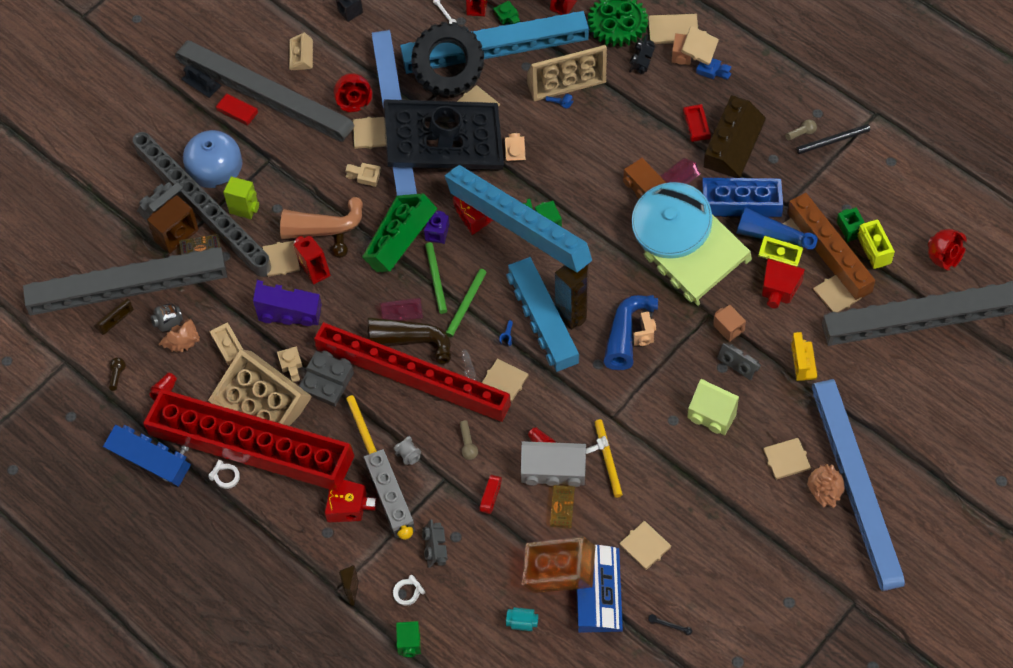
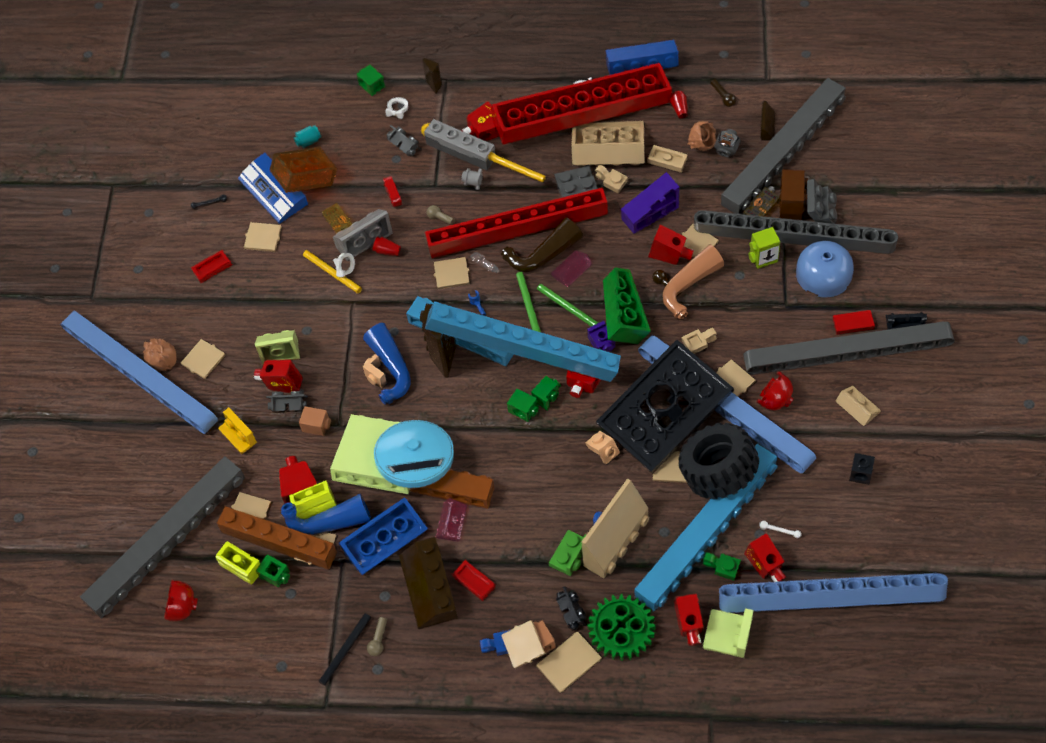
camera: 145 degrees right, 0 degrees up
(608, 91) = (568, 553): none -> bright green bracket
(716, 548) = (211, 266): none -> red tile
(732, 377) = (279, 376): none -> red torso

